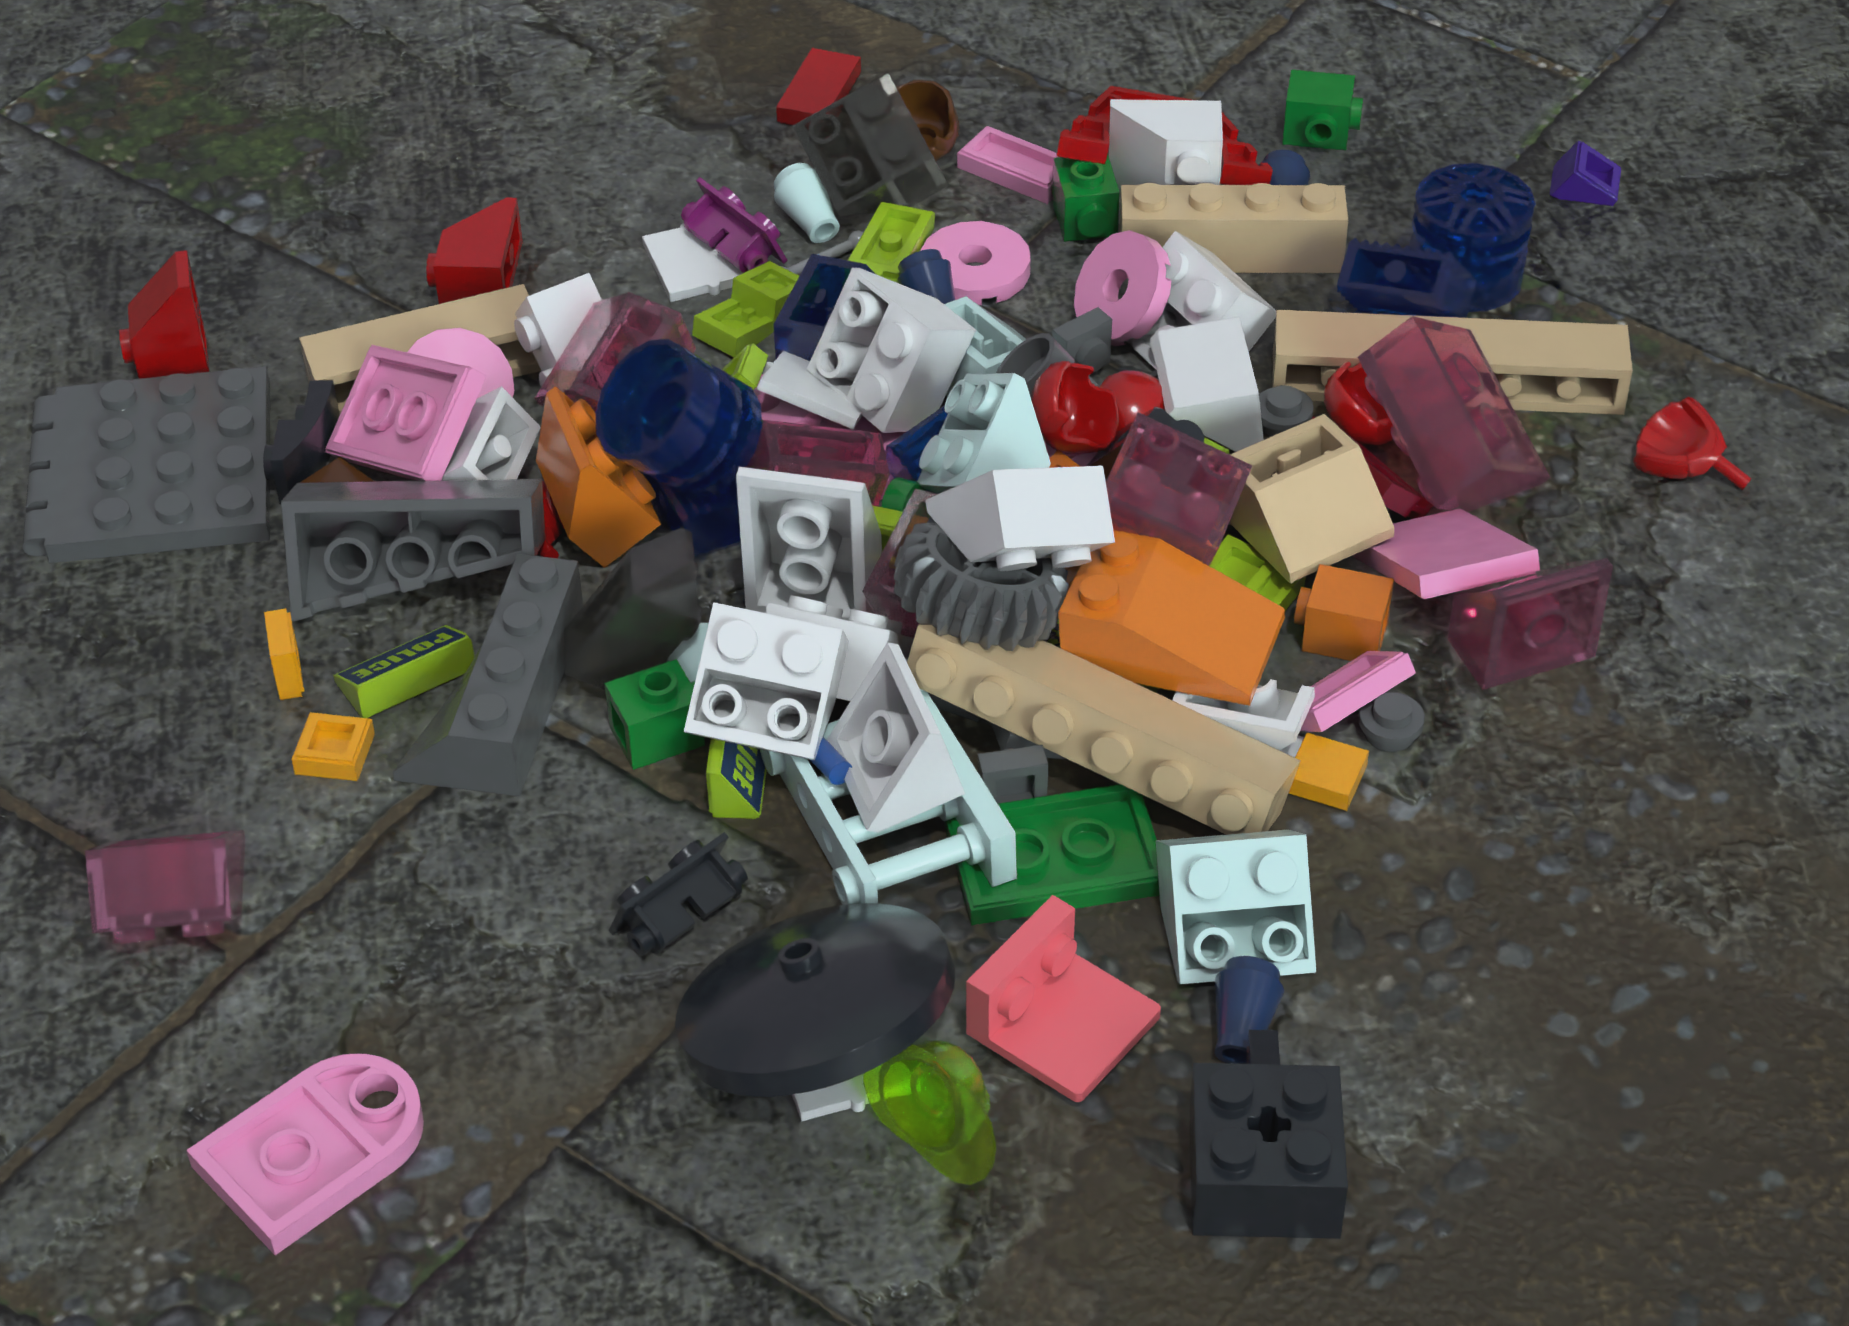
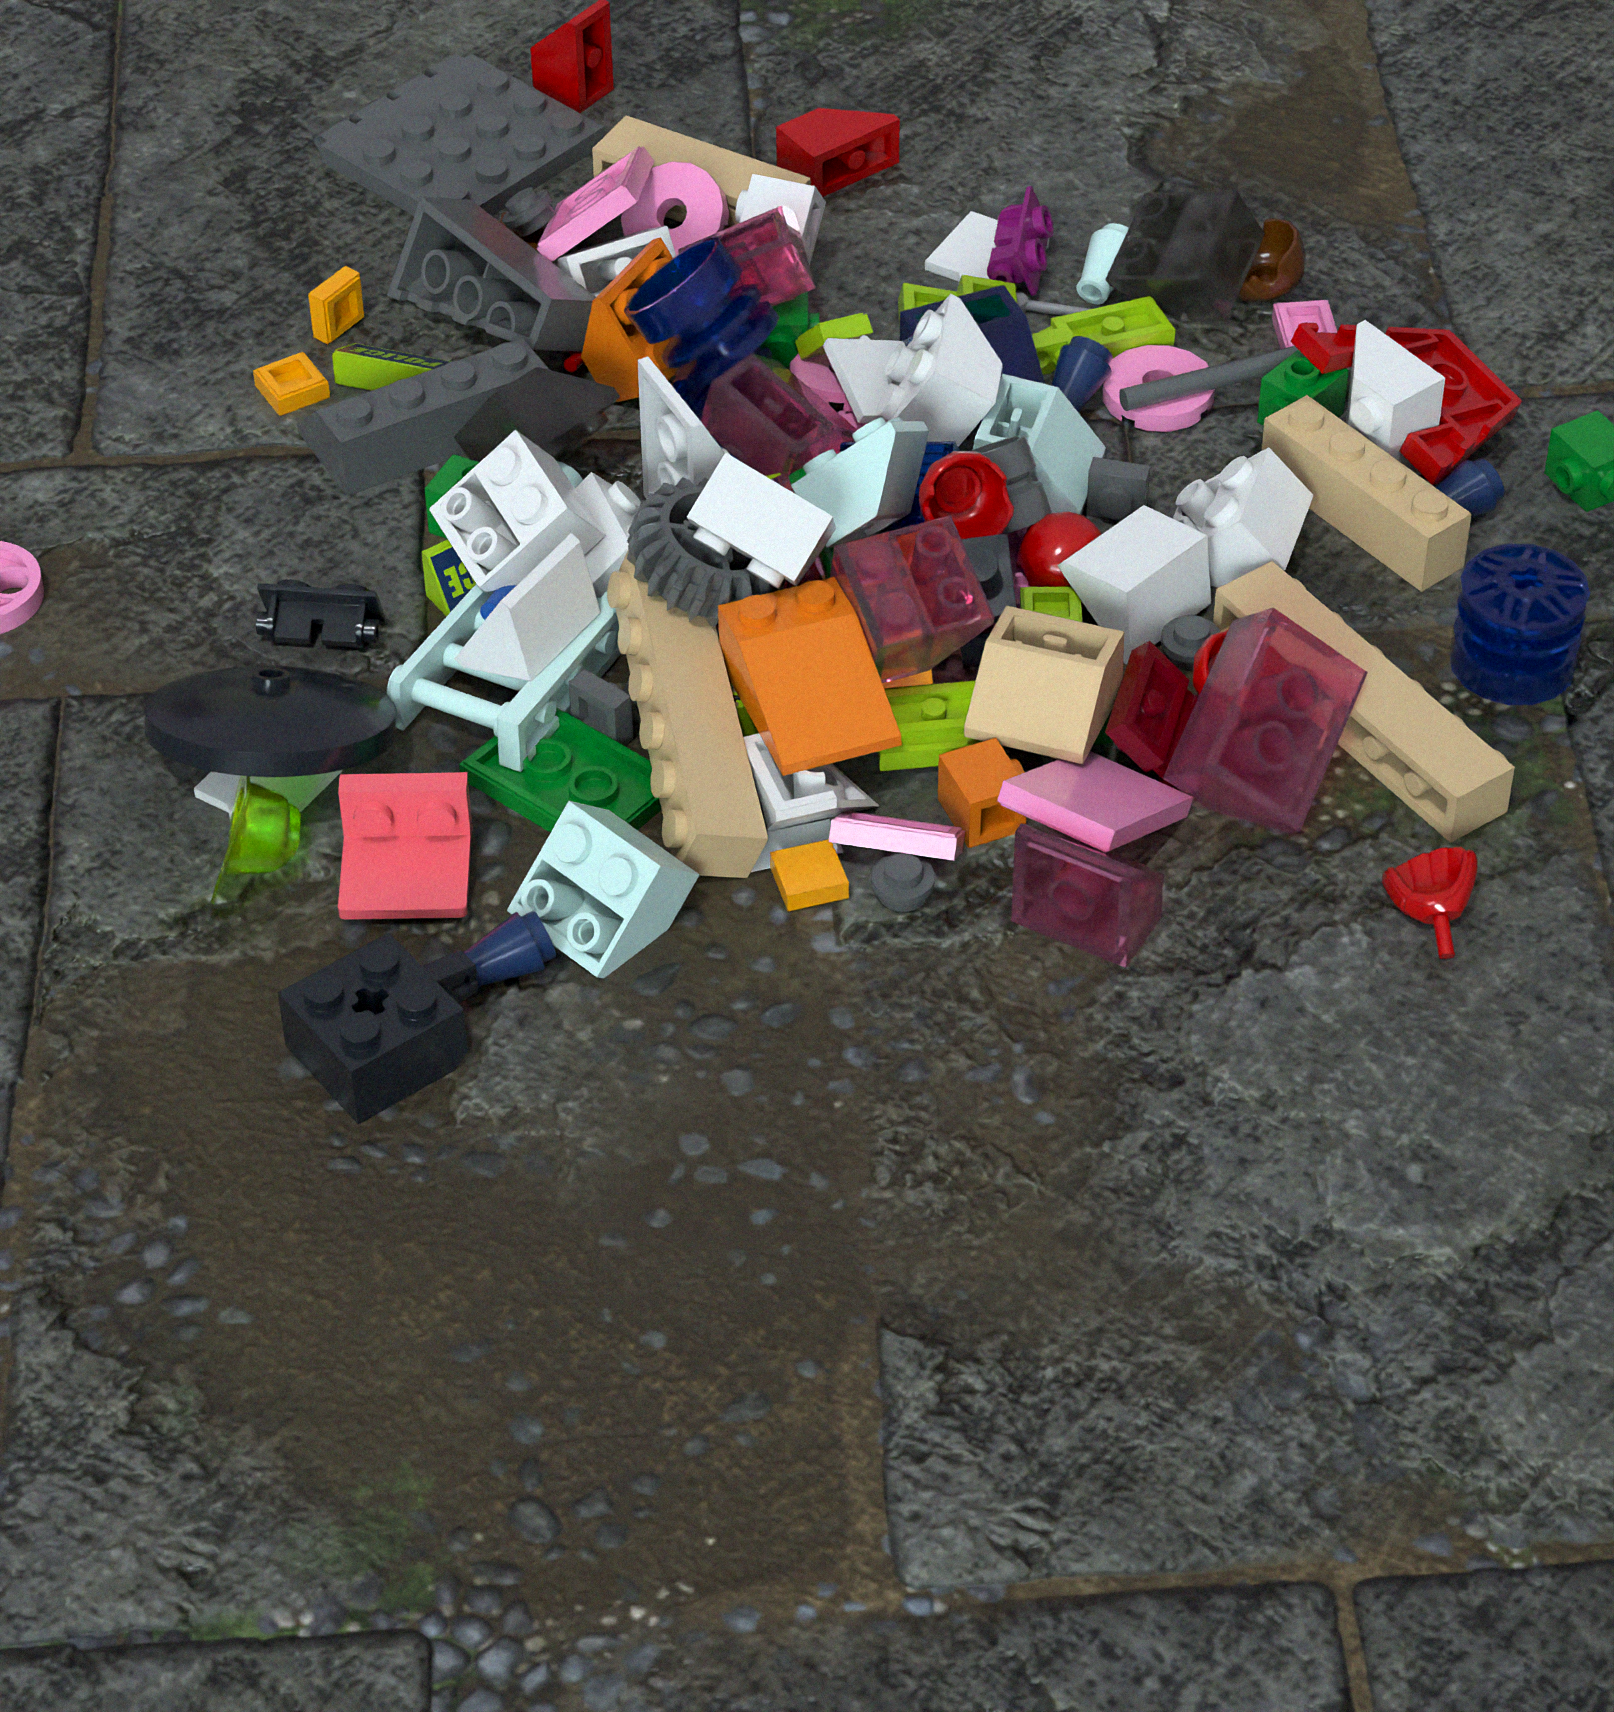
camera: 50 degrees right, 0 degrees up
(166, 883) = (83, 382): clear pink slope -> none
(302, 442) = (558, 179): black slope -> none
(338, 460) = (528, 211): none -> dark grey plate
(817, 84) = (1271, 189): red tile -> none
(1017, 220) = (1202, 379): none -> dark grey bar
(1148, 289) = (1194, 469): bright pink tile -> none
(1405, 280) = (1407, 617): clear blue brick -> none

